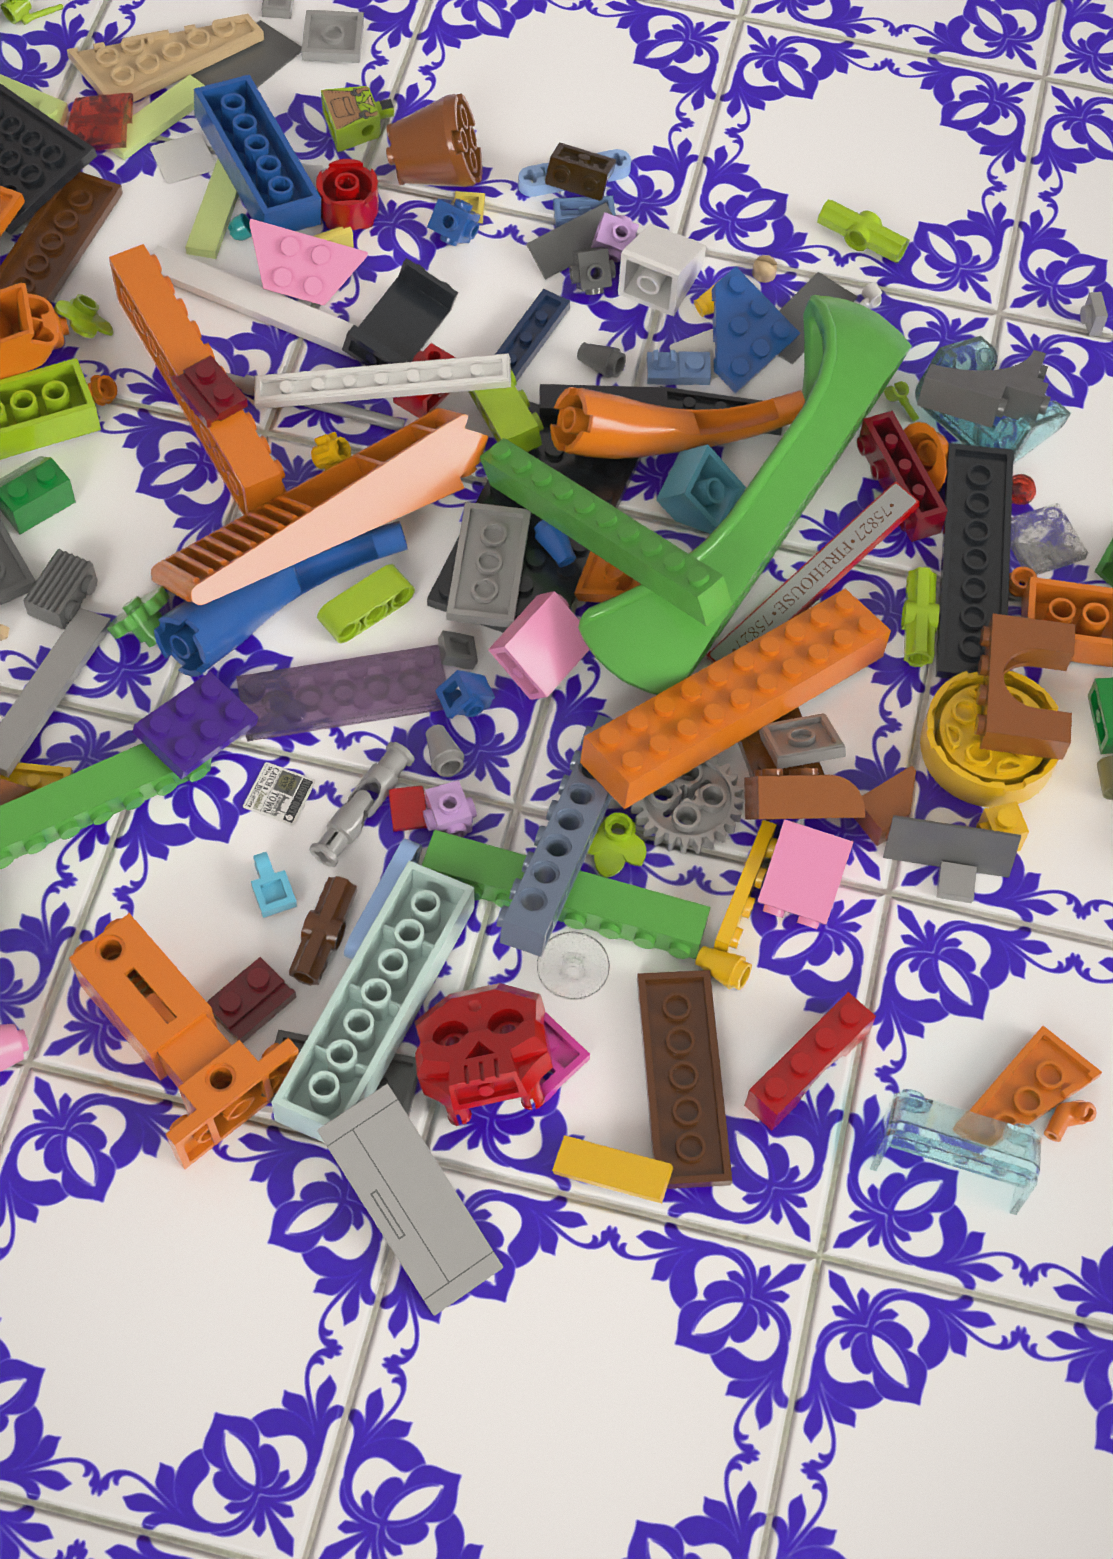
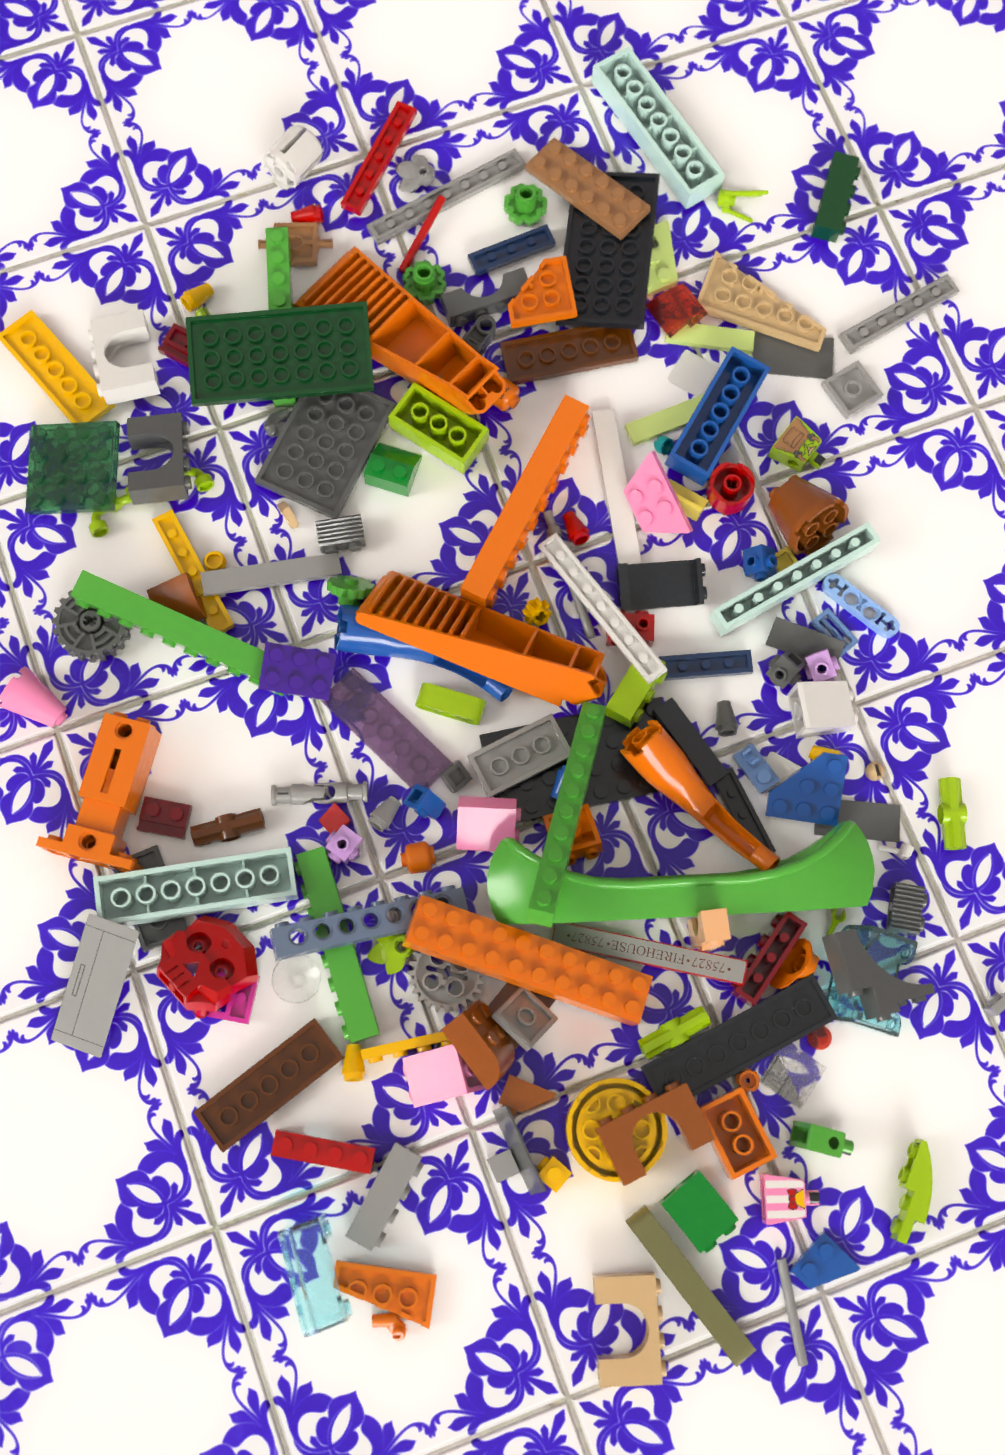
camera: 55 degrees right, 15 degrees up
(84, 316) = (529, 408): lime plate -> none
(102, 389) = (492, 458): orange plate -> none
(209, 391) = (510, 520): dark red plate -> none
(264, 361) = (576, 530): none -> red cone
(271, 889) = (234, 783): medium azure plate -> none
(279, 793) = (300, 742): sticker -> none
(407, 851) = (296, 842): light blue beam -> none
(499, 204) = (794, 579): none -> light aqua brick
(524, 746) = (418, 857): none -> orange head
(579, 171) = (857, 610): dark brown bracket -> none
(613, 1169) = (187, 1082): yellow tile -> none
(700, 489) = (669, 843): medium azure slope -> none
(842, 472) = (709, 930): none -> light nougat arch
(911, 1024) = (384, 1196): none -> light grey brick
(933, 325) = (906, 909): none -> dark grey brick

